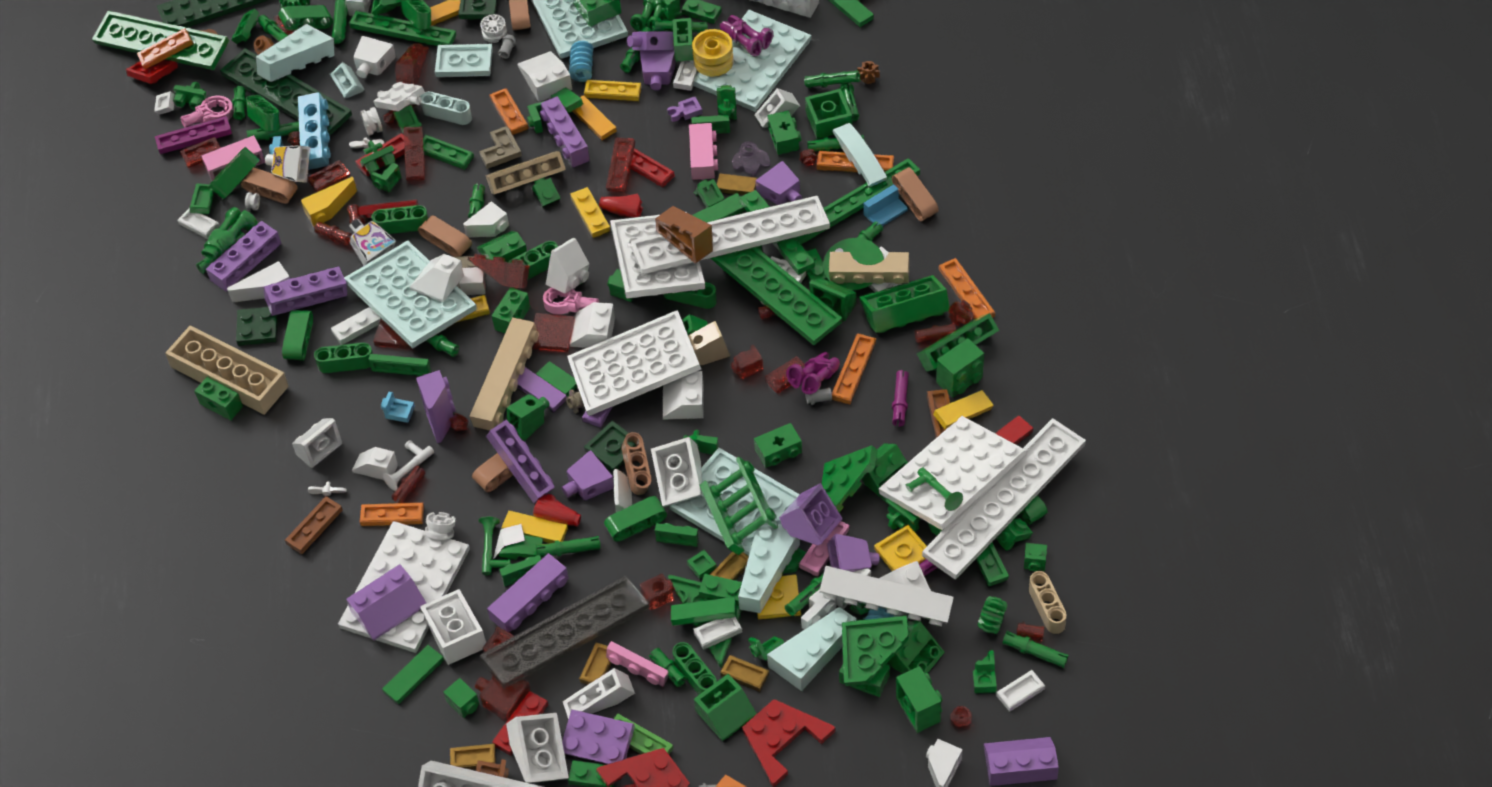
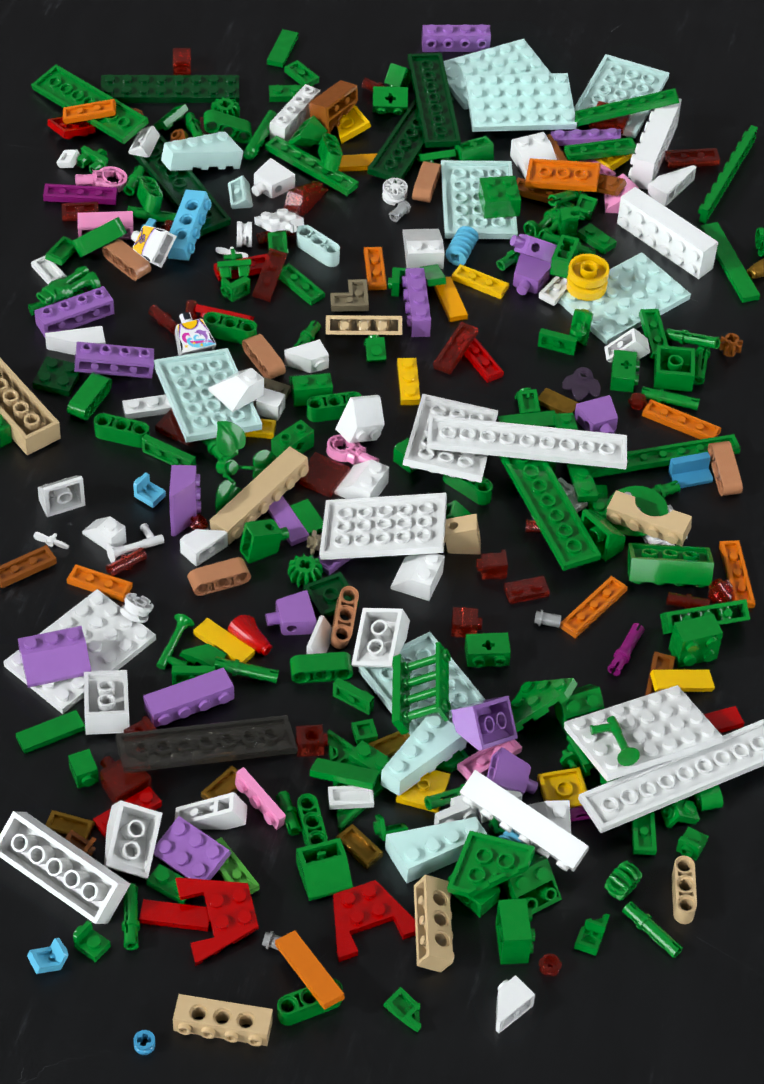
camera: 15 degrees right, 5 degrees down
(232, 61) = (144, 142): none -> white slope
(252, 201) = (105, 267): white bush -> none
(328, 176) = (183, 269): clear red plate -> none
(328, 202) = (172, 291): yellow slope -> none
(458, 334) = (228, 440): none -> green plant
(463, 60) = (354, 210): light aqua plate -> none
(471, 442) = (203, 544): none -> white slope
(505, 273) = (302, 406): clear red slope -> none
(509, 536) = (196, 640): white sticker -> none
(520, 461) = (235, 574): medium lavender brick -> none
(578, 431) = (305, 570): none -> green gear
(623, 205) = (441, 385): red piece -> none
(686, 108) = (541, 319): medium lavender plate -> none
(686, 233) = (483, 424): dark orange wedge -> none
(703, 151) = (538, 362): bright pink brick -> none
(705, 443) = (418, 623): green slope -> none
(736, 27) = (629, 284): magenta piece -> none
(746, 426) = (465, 622): none -> clear red brick
(793, 82) = (653, 329): none -> green plate
(813, 374) = (550, 596): magenta piece -> none
(844, 719) = (433, 923): none -> tan brick
(860, 154) = (687, 414): light aqua slope -> none
(1020, 690) = (620, 963): white tile -> none
(1021, 761) = (589, 1029): medium lavender slope -> none
(1030, 631) = (655, 910): clear red pin -> none

